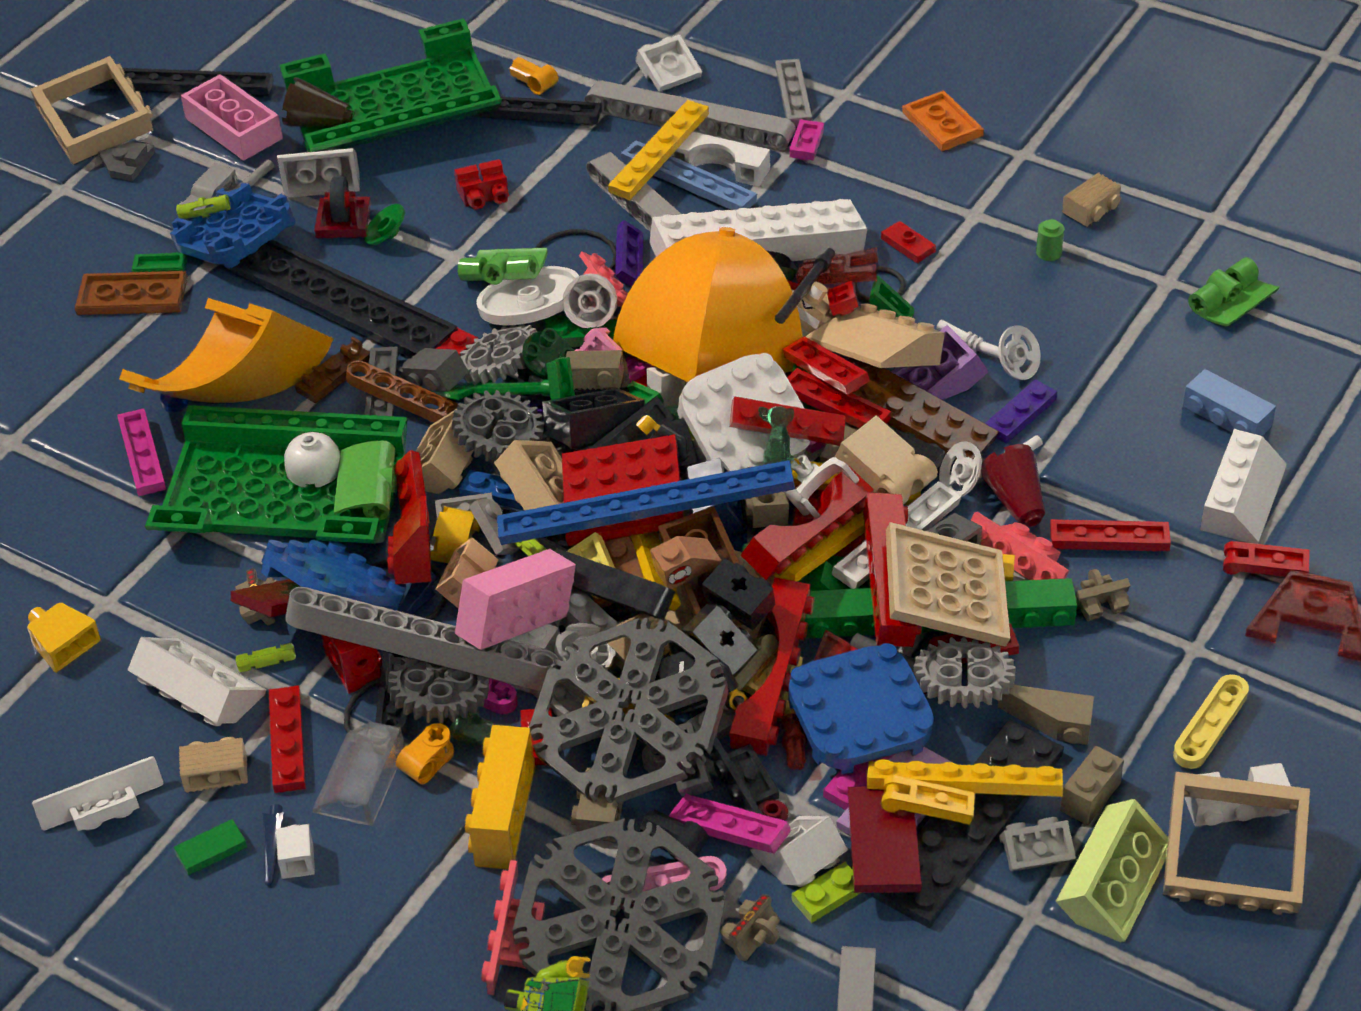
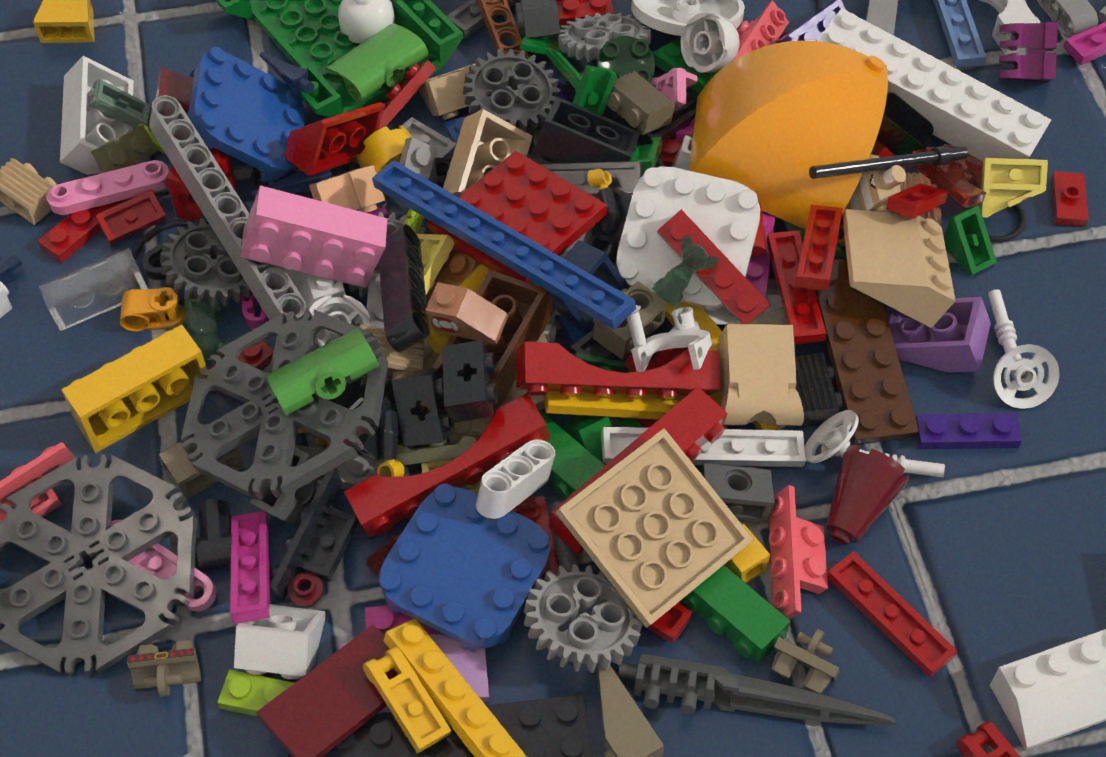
camera: 45 degrees right, 10 degrees up
(206, 652) = (119, 104): none -> sand green tile
(256, 678) = (124, 150): none -> olive plate
(282, 707) = (107, 187): none -> bright pink plate
(322, 715) = (130, 217): none -> red plate
(330, 529) = (293, 76): none -> dark blue piece
(643, 658) = (322, 371): none -> bright green panel
(791, 175) = (1037, 39): none -> magenta legs
(831, 629) = (515, 479): none -> white beam
(874, 248) = (1011, 182): none -> light yellow wing
(1080, 648) = (738, 692): none -> dark grey piece

